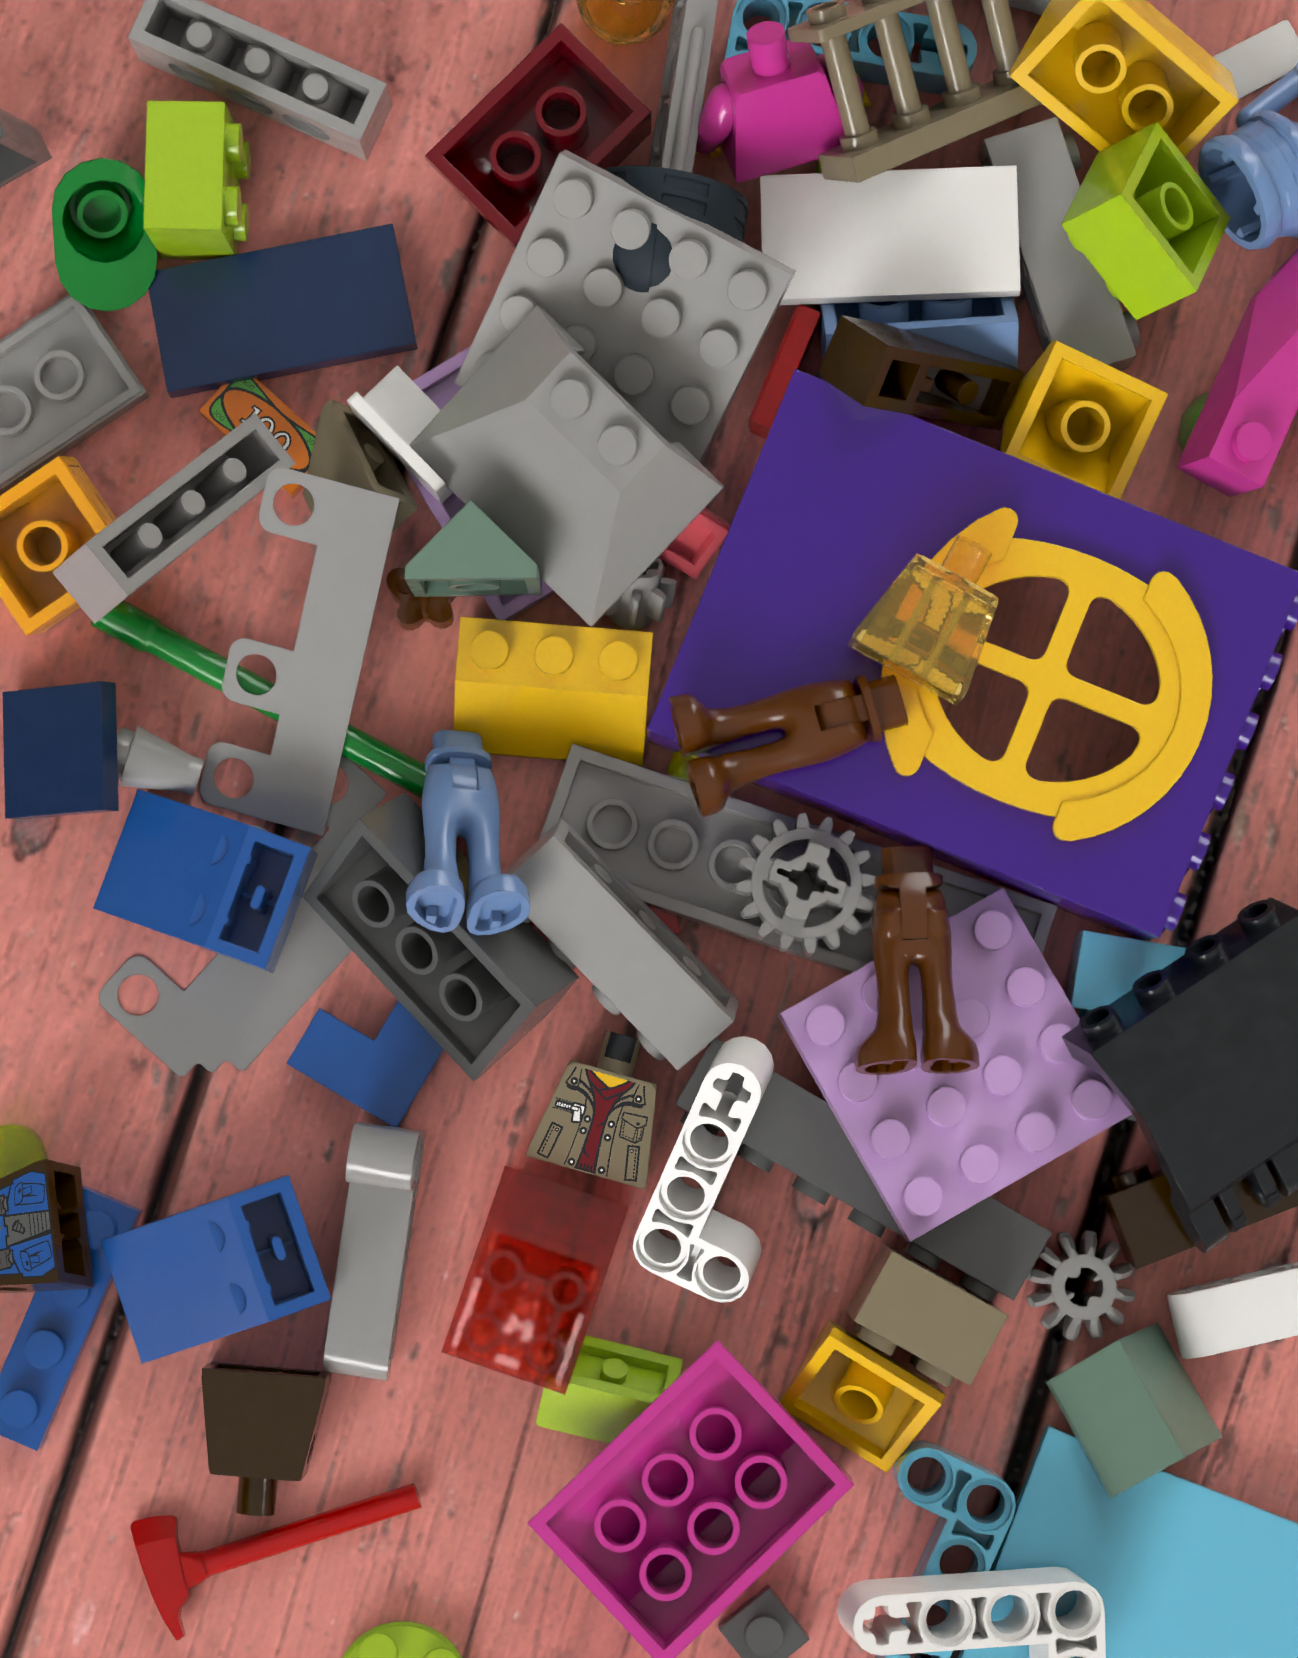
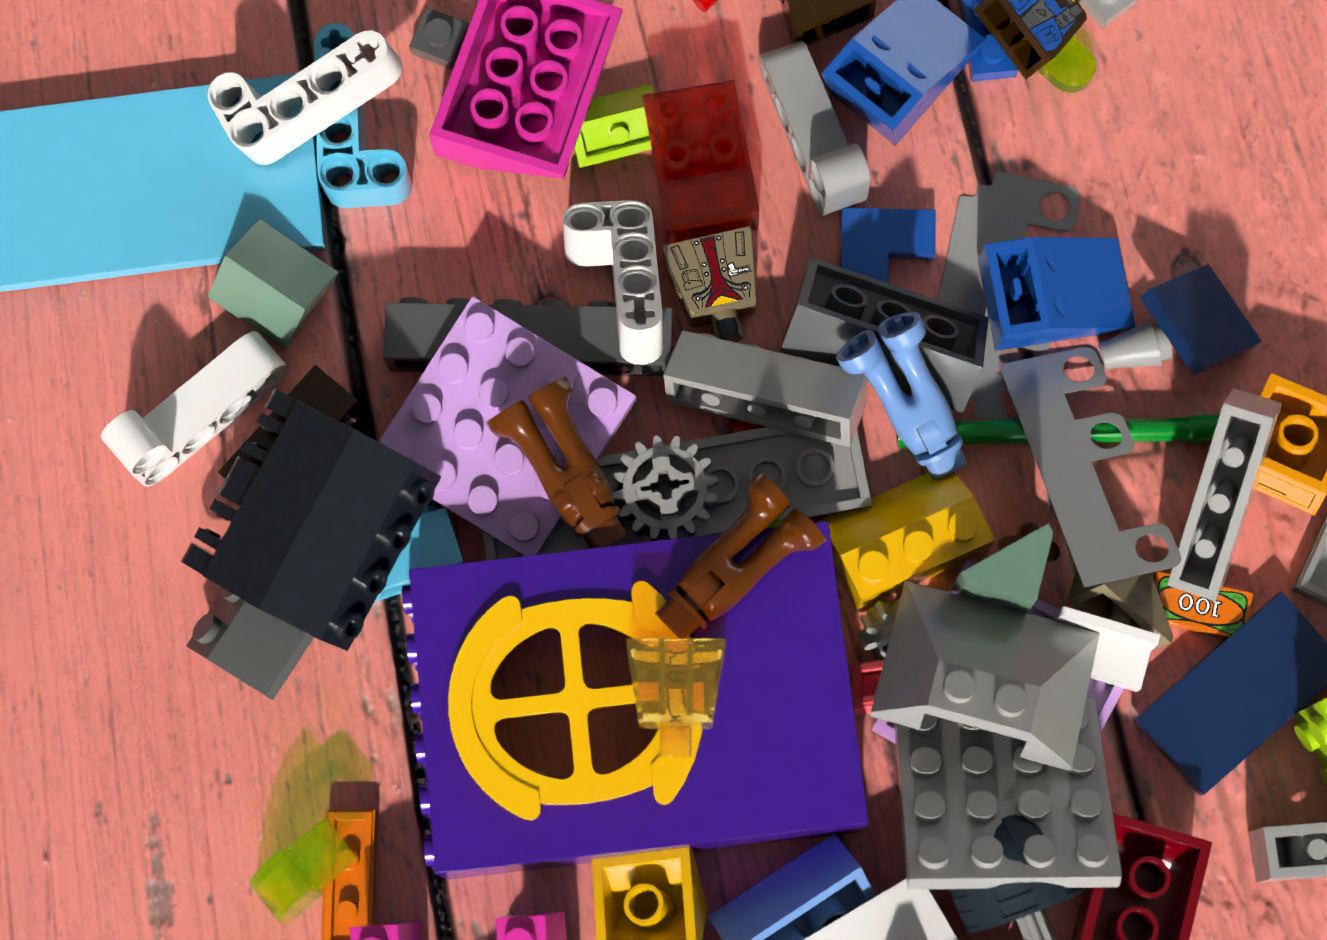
camera: 155 degrees right, 10 degrees down
(787, 359) = (875, 841): red tile -> none
(860, 1396) = (453, 207): yellow slope -> none
(917, 375) = (781, 870): dark brown slope -> none
(925, 1315) = (438, 260): dark tan brick -> none
(1090, 1304) = (330, 342): light grey gear -> none

